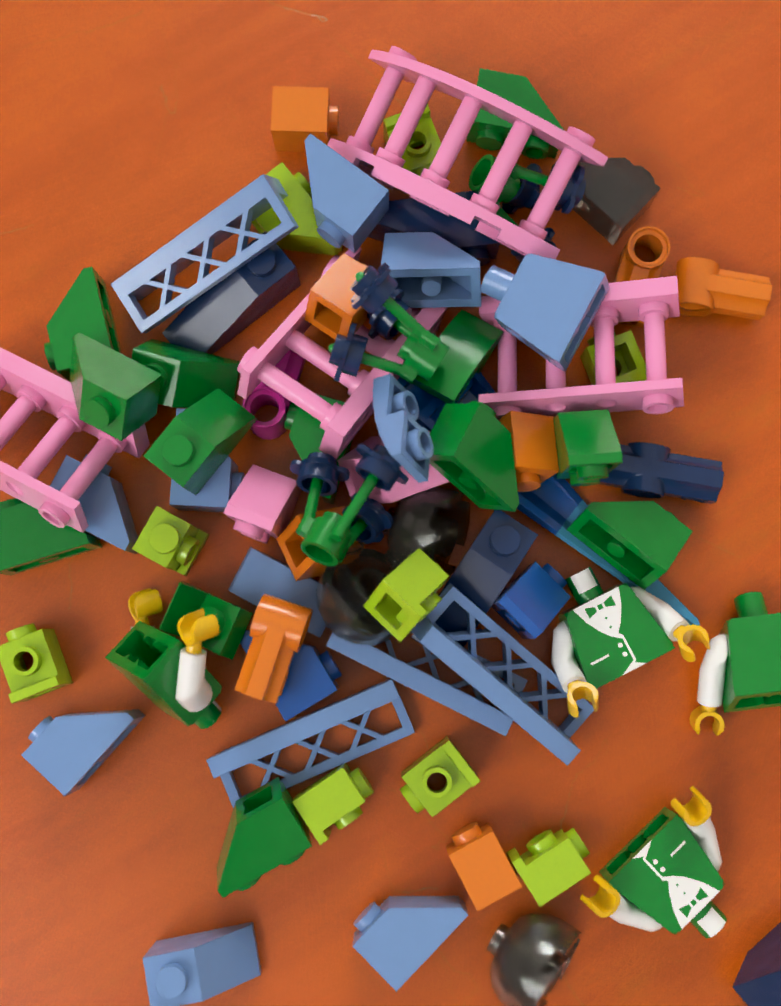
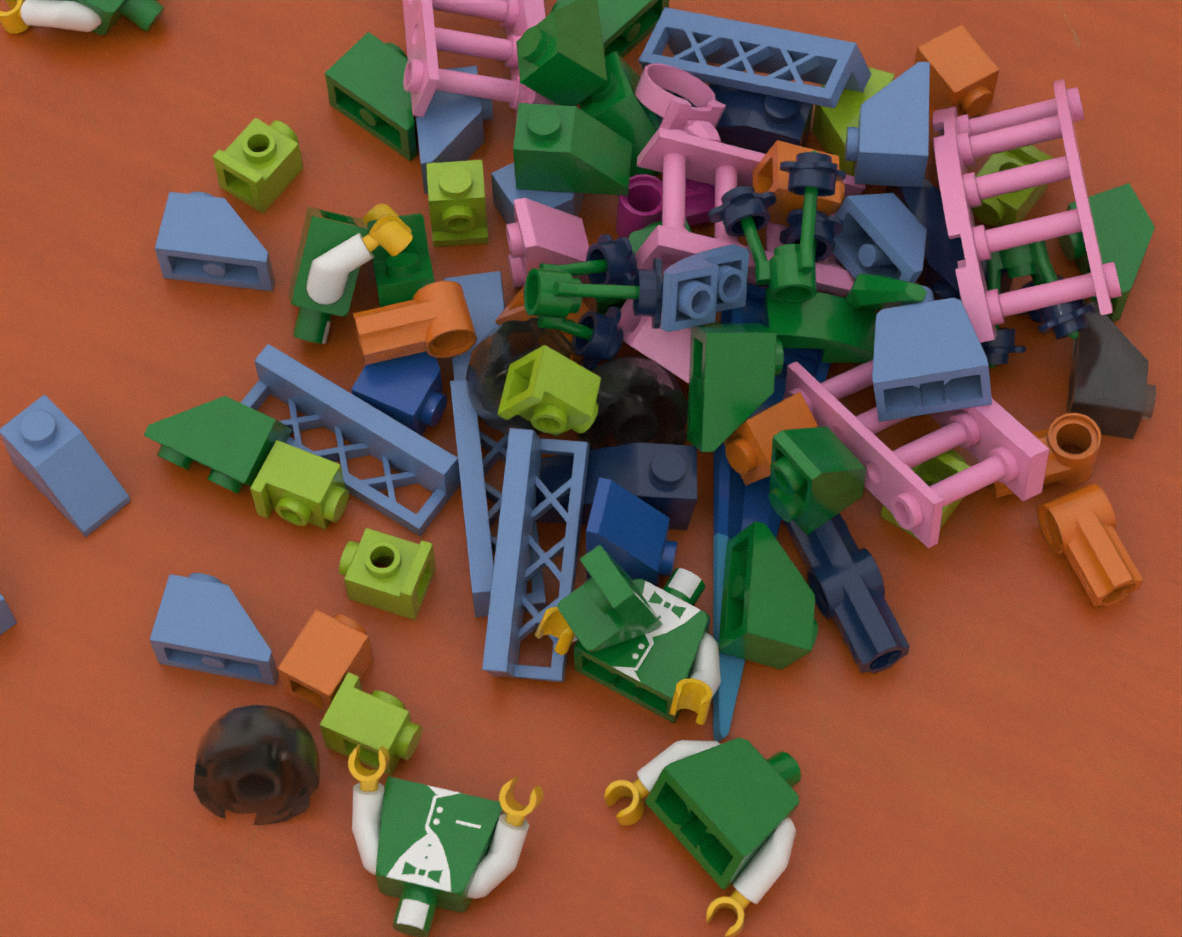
camera: 55 degrees right, 20 degrees down
(228, 341) = (676, 111): none -> bright pink piece
(473, 300) = (883, 292): none -> green bar
(597, 656) = (607, 605): none -> green slope

